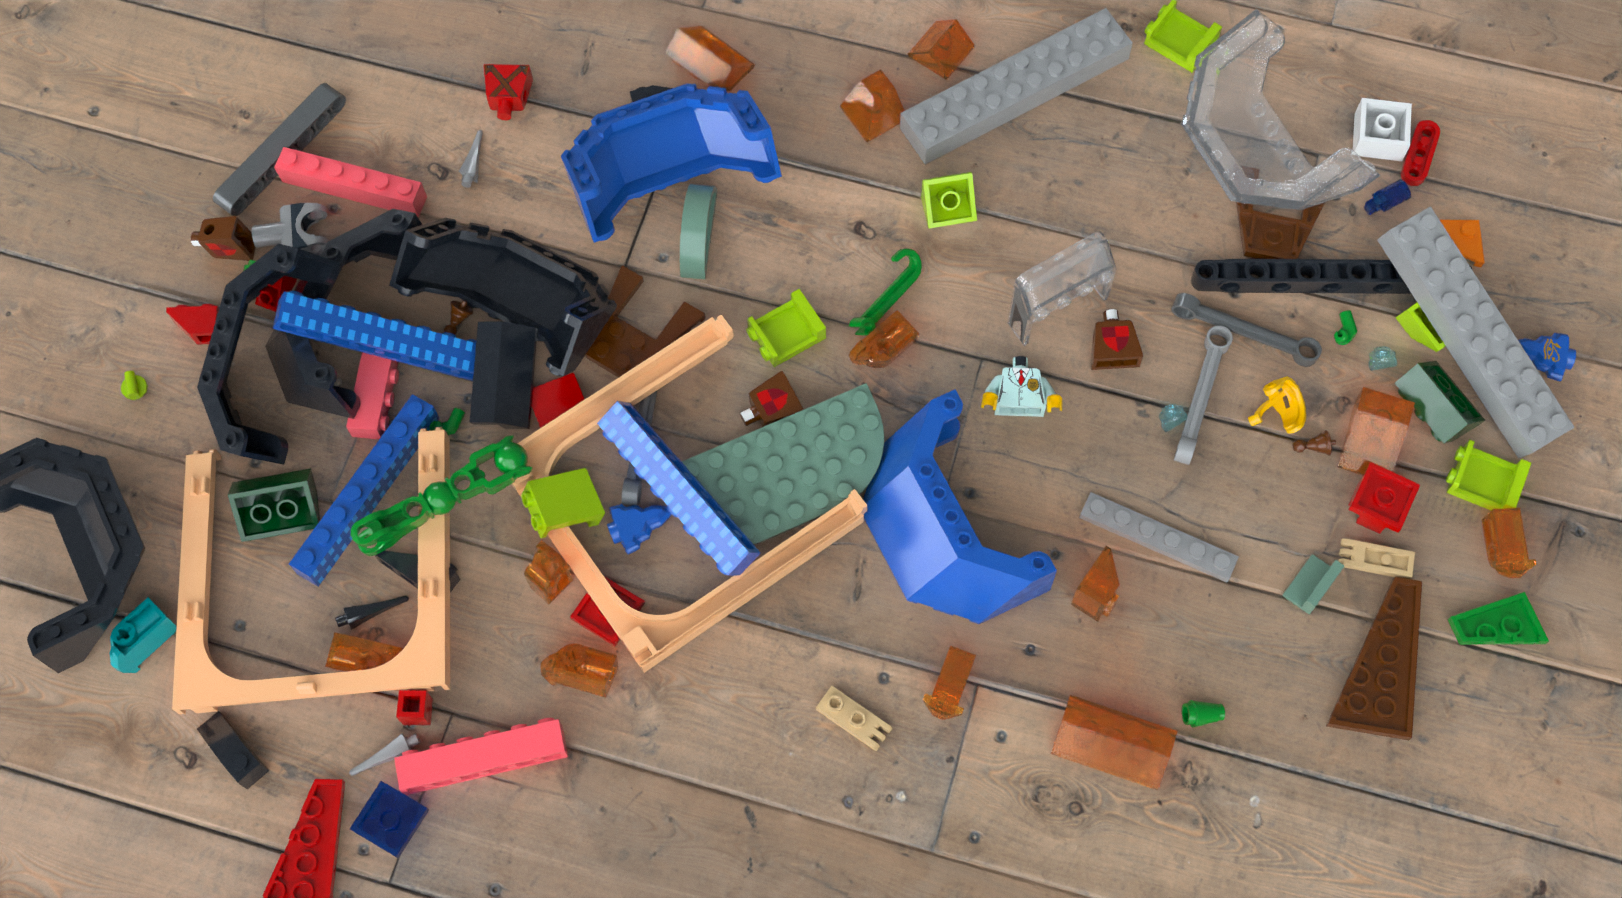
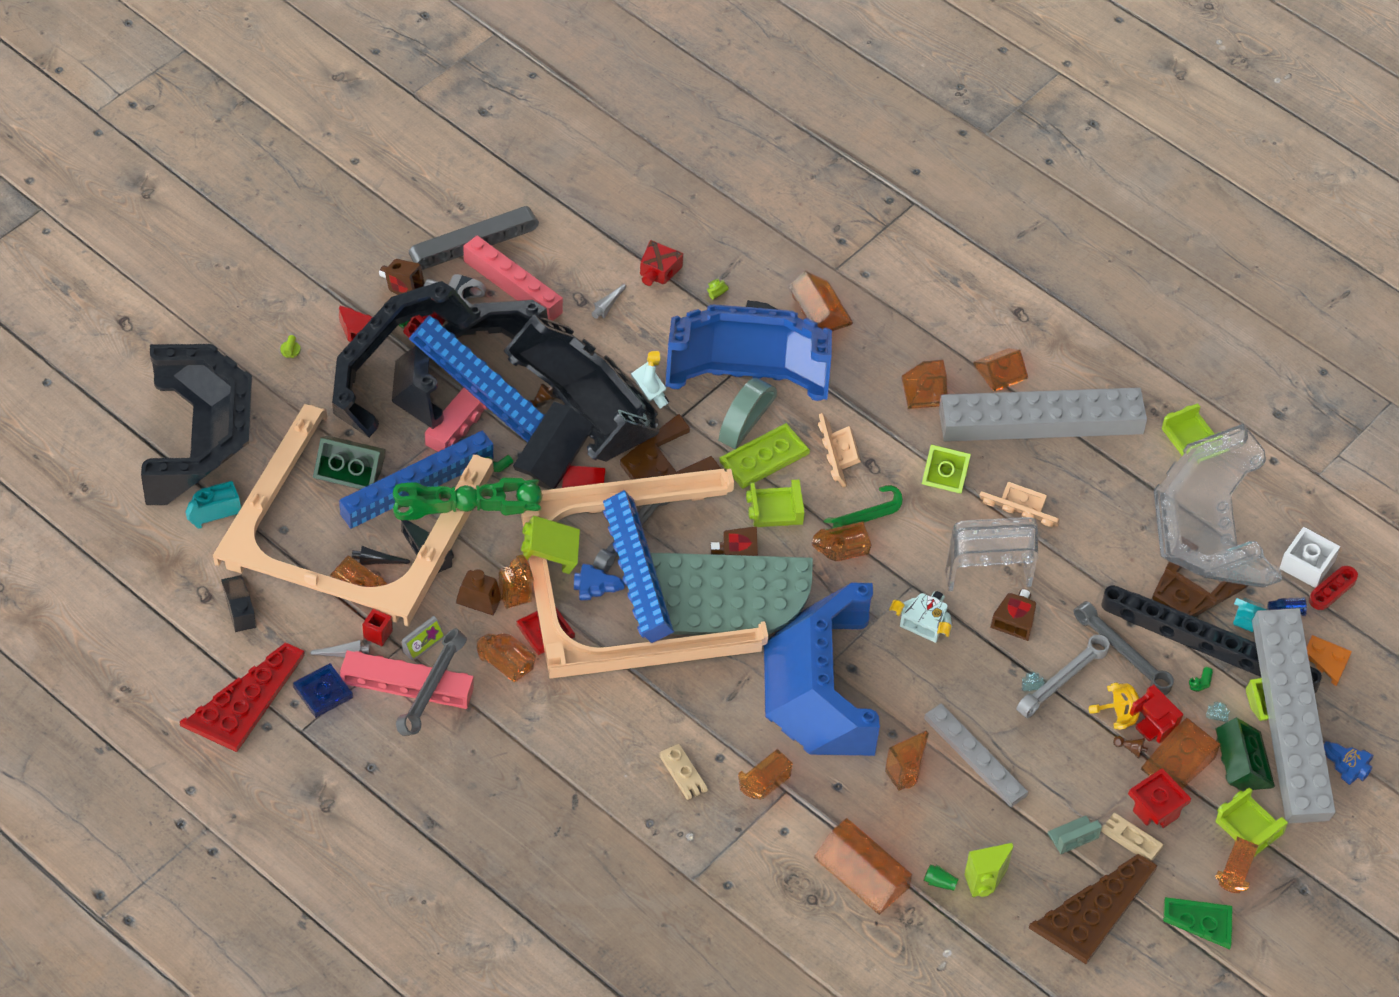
camera: 20 degrees right, 15 degrees down
(473, 693) = (422, 639): none -> slope
(509, 604) = (479, 592): none -> reddish brown torso
(515, 688) = (452, 642): none -> dark grey piece
(570, 243) = (649, 381): none -> light aqua torso
(585, 89) = (716, 288): none -> lime plate
(741, 273) = (764, 455): none -> lime tile
(822, 225) = (841, 449): none -> light nougat bracket
(1048, 200) = (1023, 501): none -> light nougat bracket
(1252, 684) = (987, 868): none -> lime slope
(1330, 396) = (1160, 715): none -> red panel
(1361, 229) = (1246, 612): none -> teal piece

